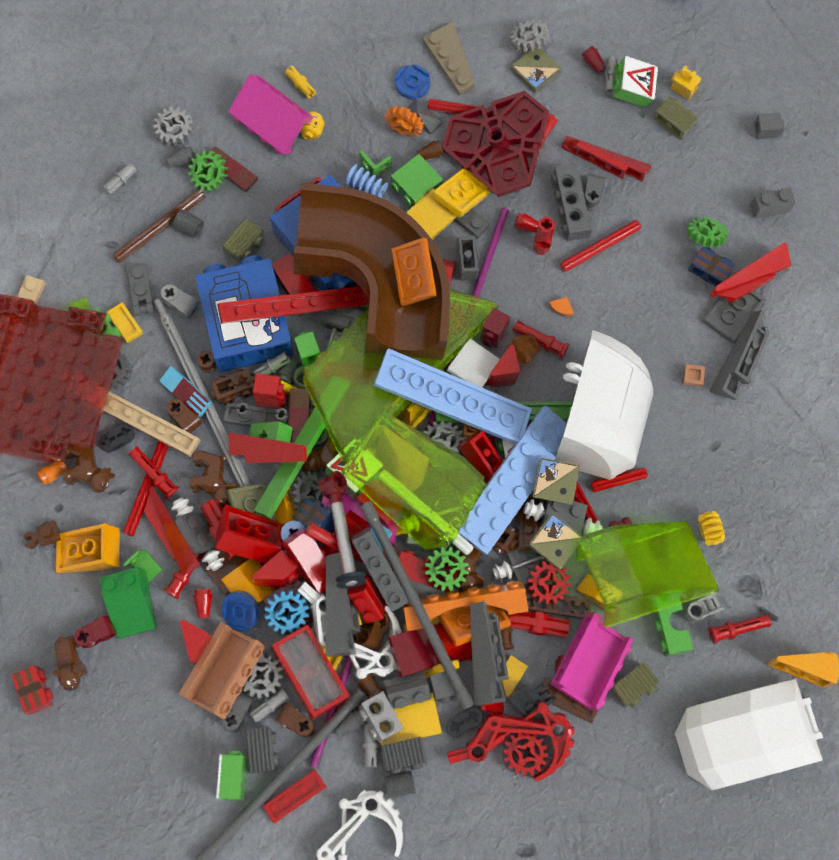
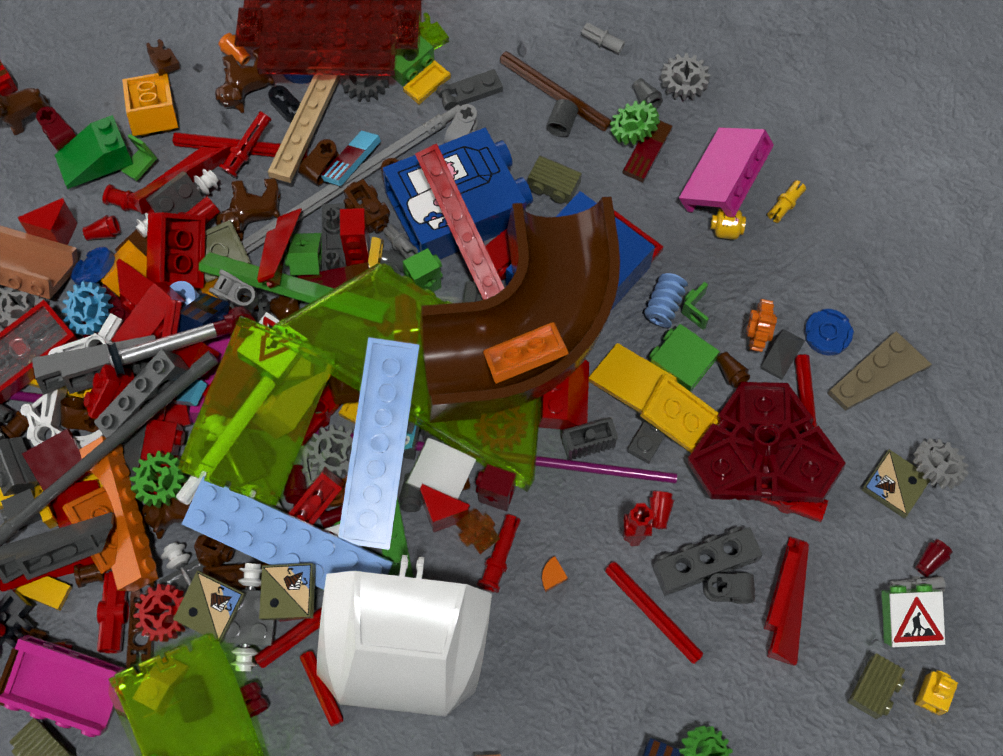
camera: 80 degrees right, 5 degrees down
(299, 491) = (231, 288): none -> light grey piece

